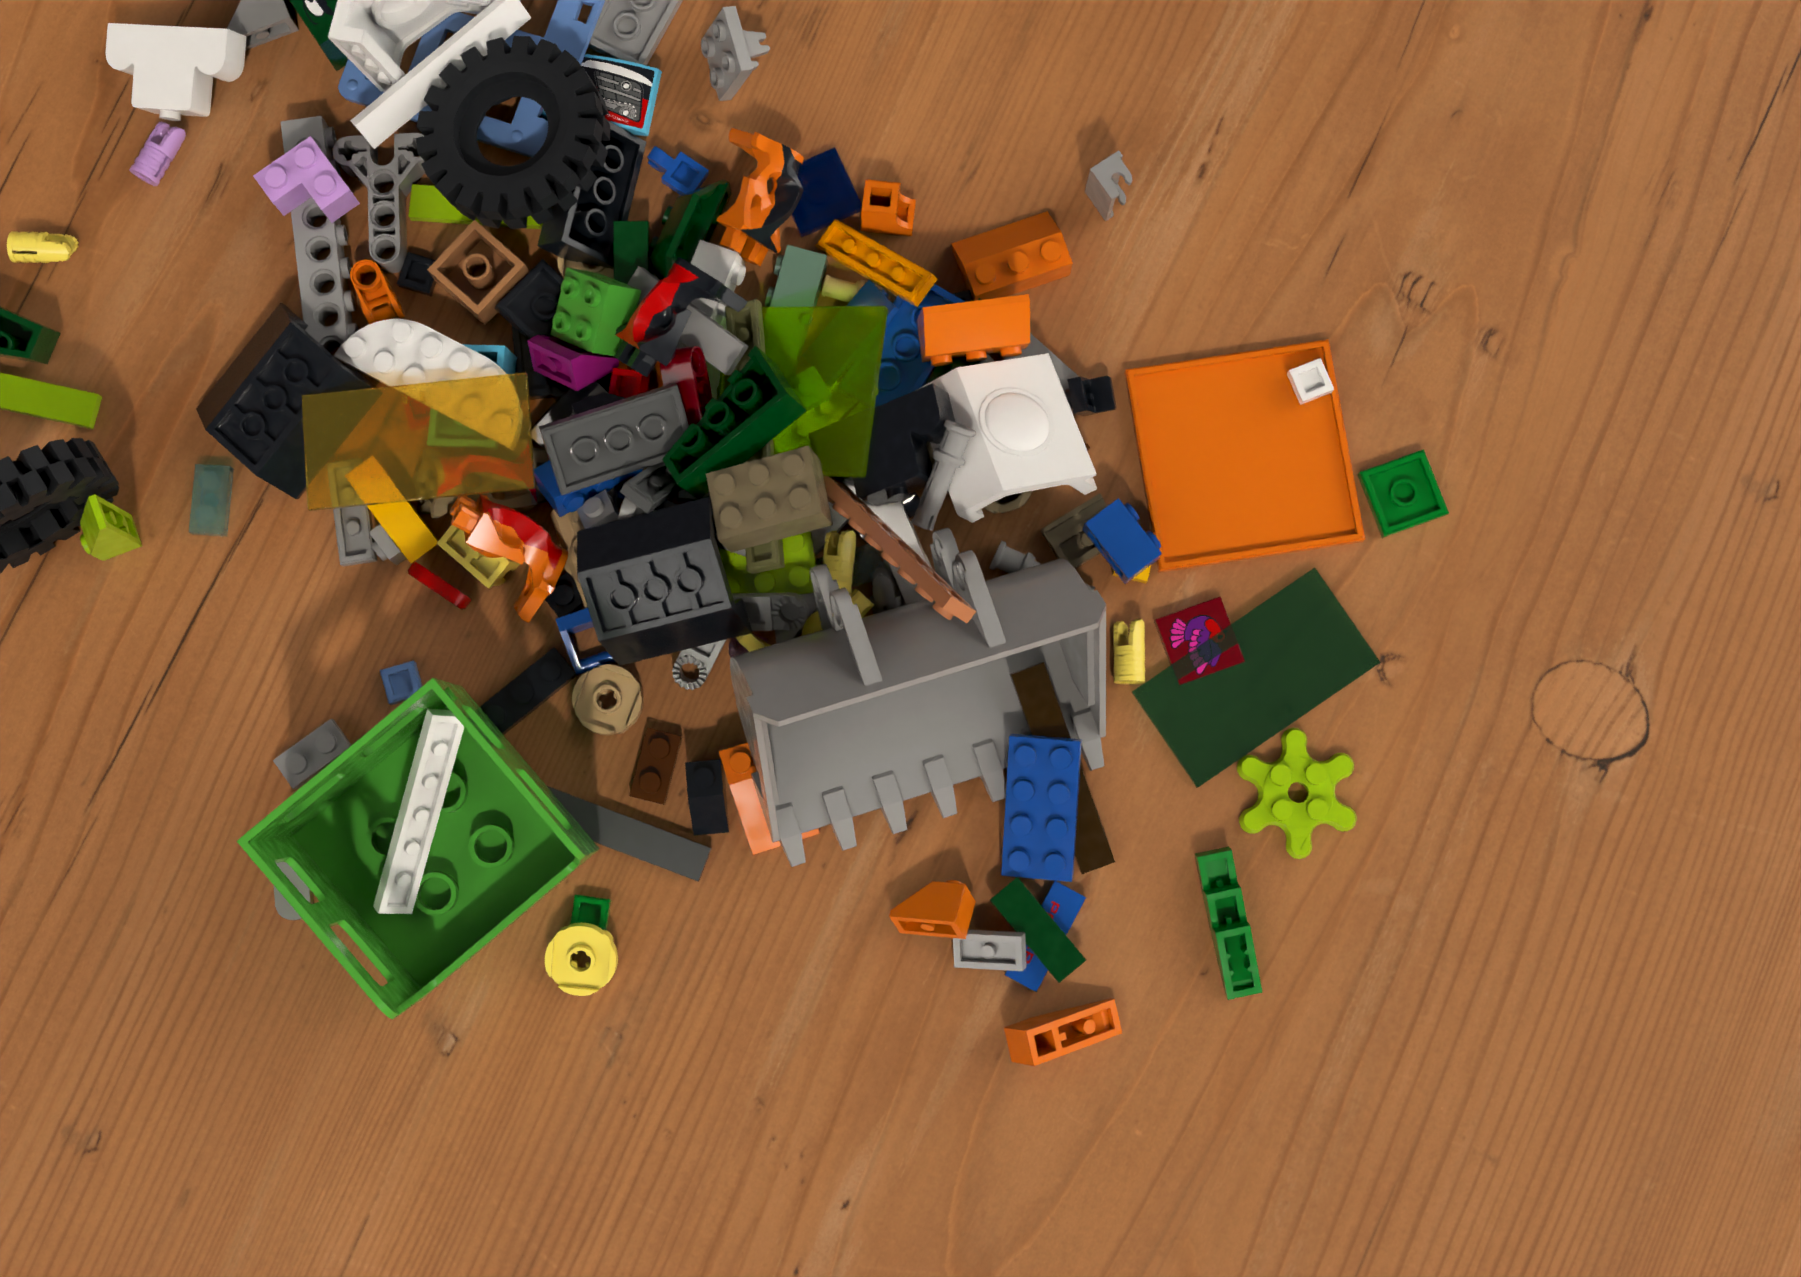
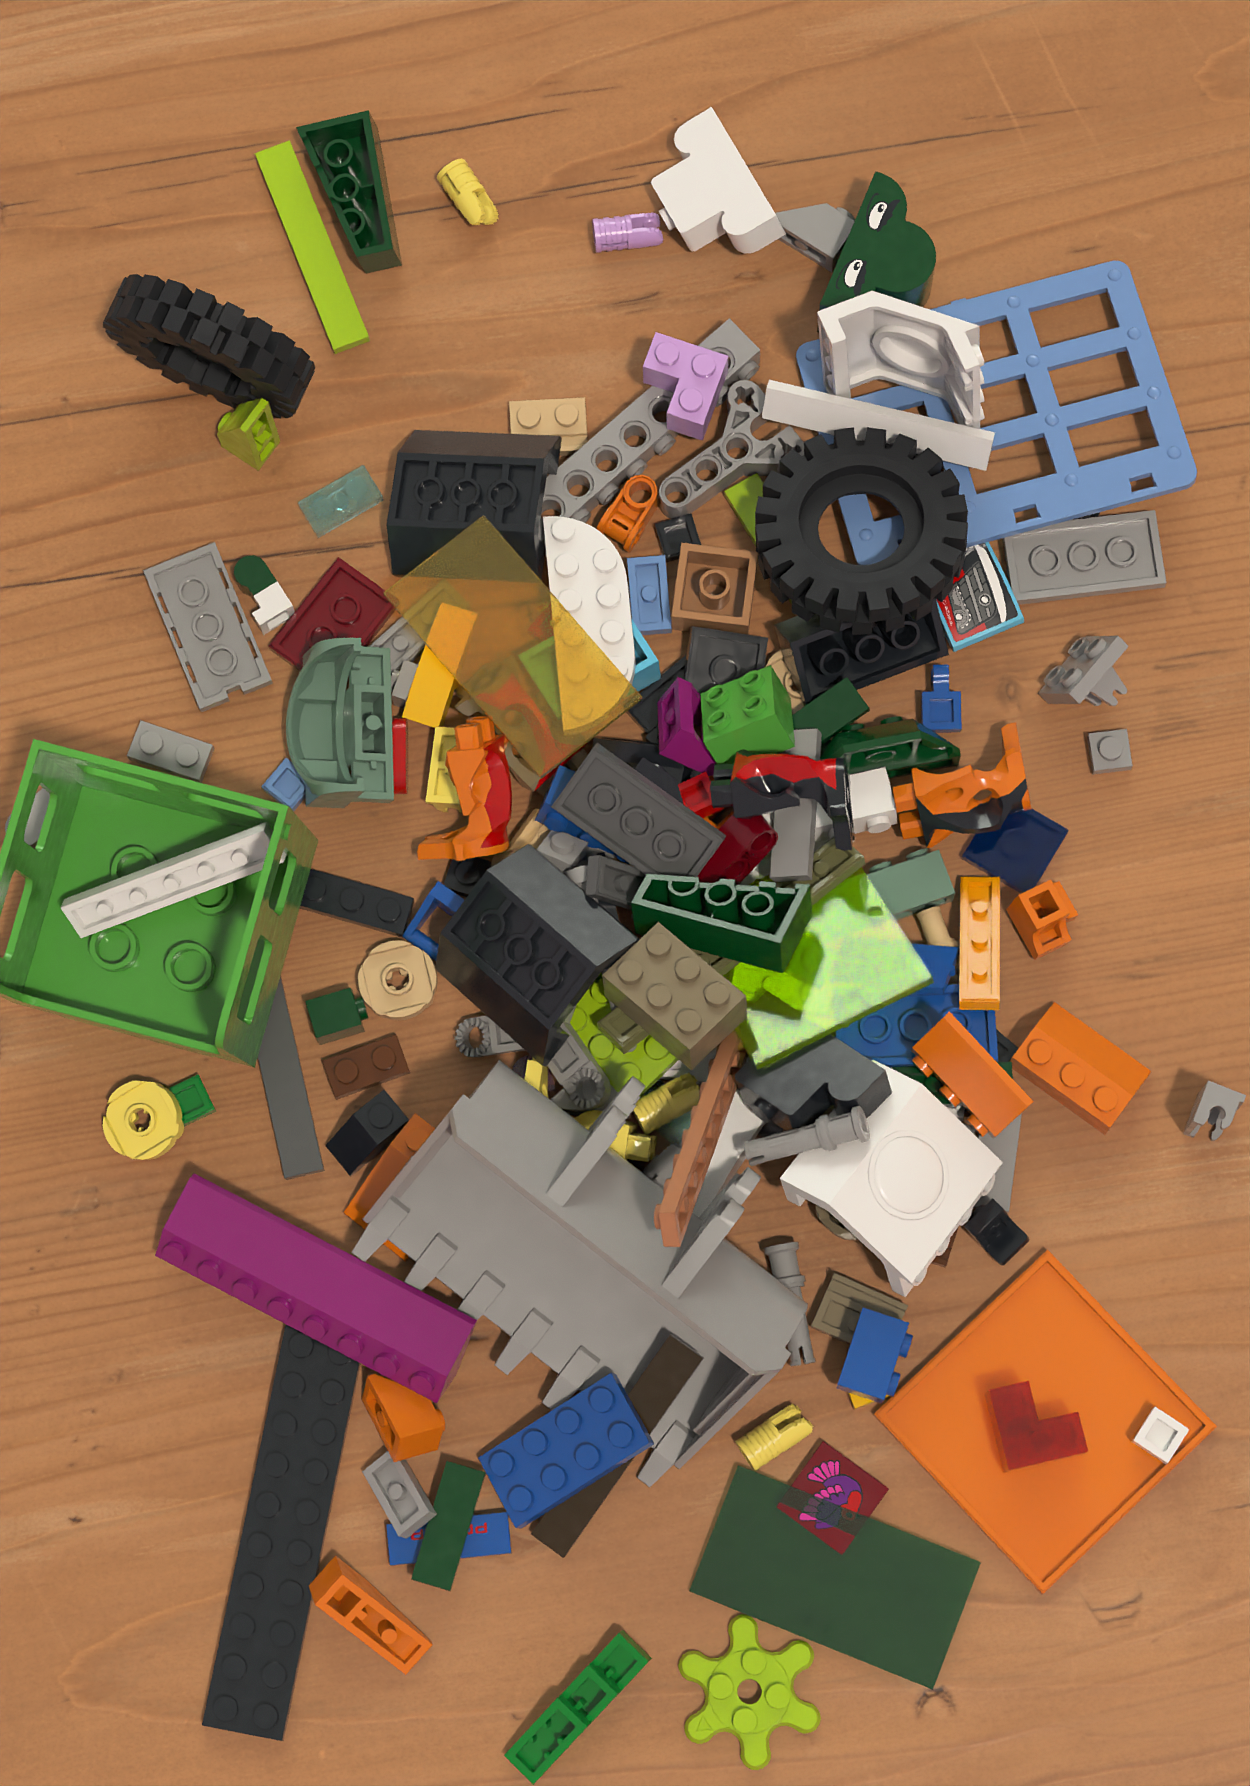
camera: 60 degrees right, 5 degrees down
(233, 601) = (258, 582): none -> leg
(235, 662) = (207, 626): none -> light grey piece
(260, 302) = (552, 417): none -> tan plate
(303, 568) = (338, 607): none -> dark red tile
(389, 612) = (342, 728): none -> sand green piece
(448, 320) = (649, 594): none -> medium blue plate
(603, 761) = (337, 1015): none -> dark green brick
(797, 80) = (1109, 751): none -> light grey plate
(797, 912) = (315, 1288): none -> magenta slope
(959, 1054) = (282, 1539): none -> black plate
(1249, 475) = (1023, 1438): none -> clear red brick
(1403, 493) = (1115, 1602): green tile -> none

